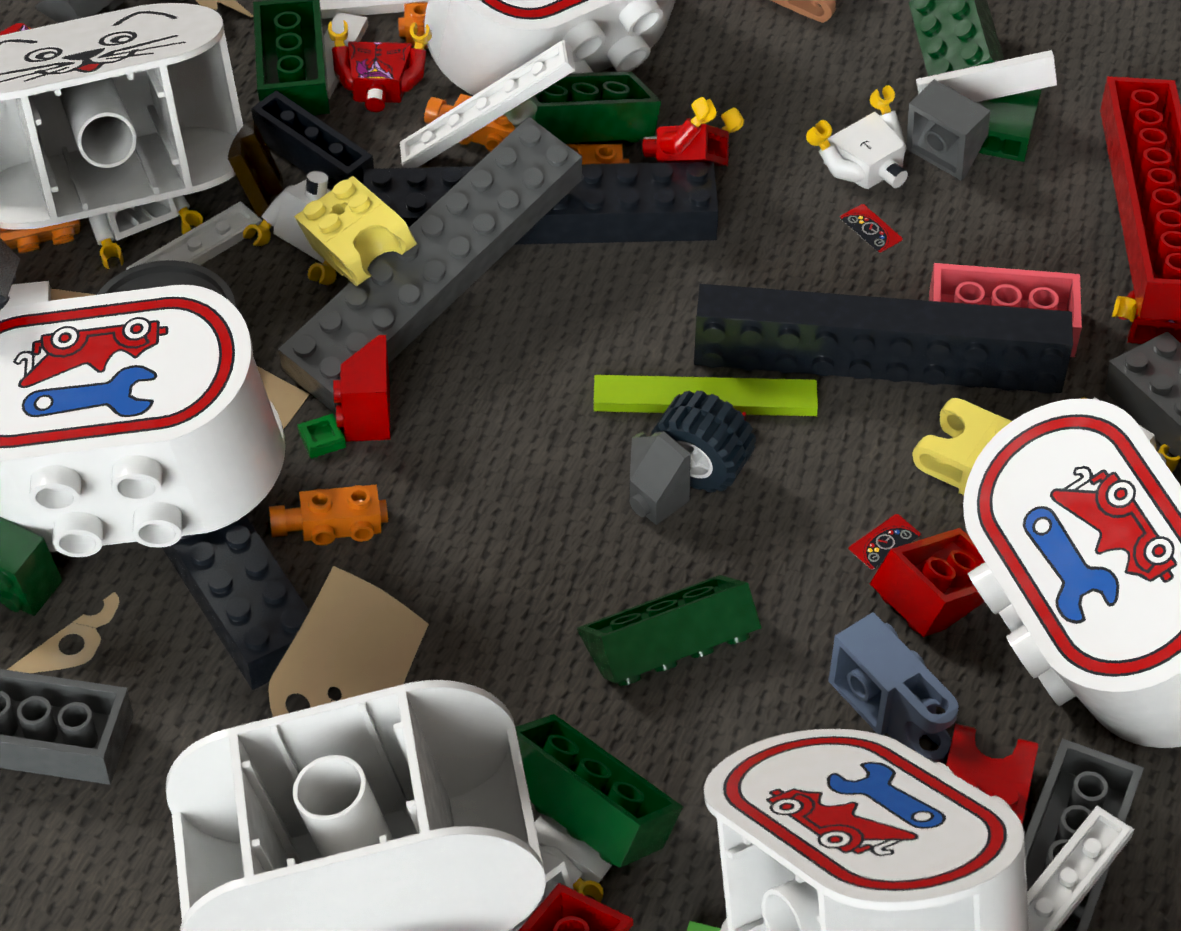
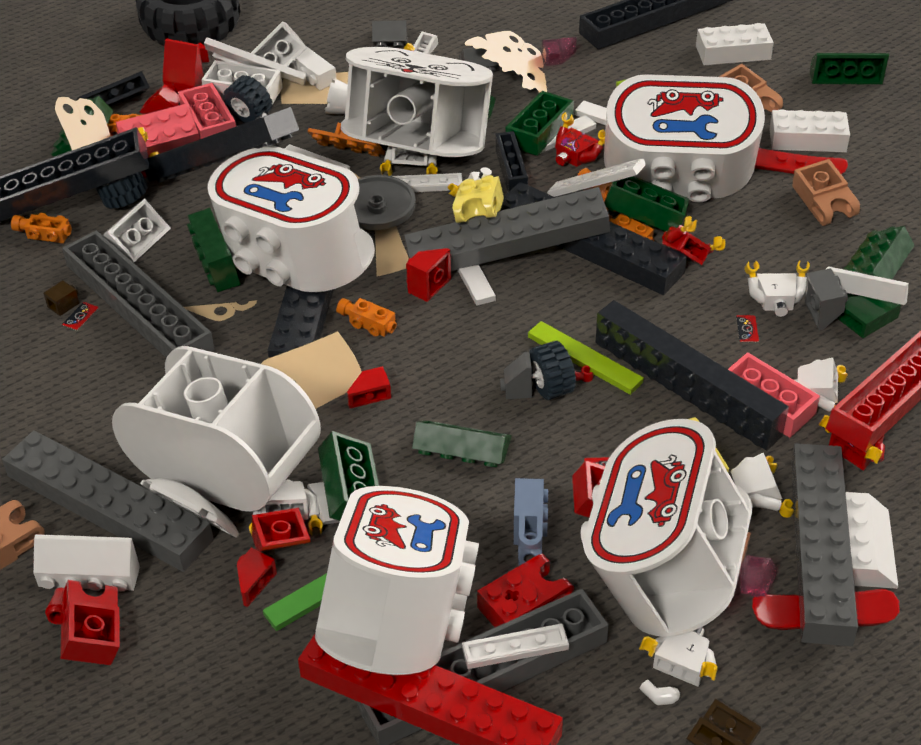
camera: 40 degrees right, 5 degrees down
(255, 167) = (473, 156): dark brown slope -> none
(321, 436) = (397, 284): green tile -> none
(442, 370) = (477, 284): none -> white tile
(454, 625) = (369, 388): none -> red slope
(1050, 248) = (823, 379): none -> white torso

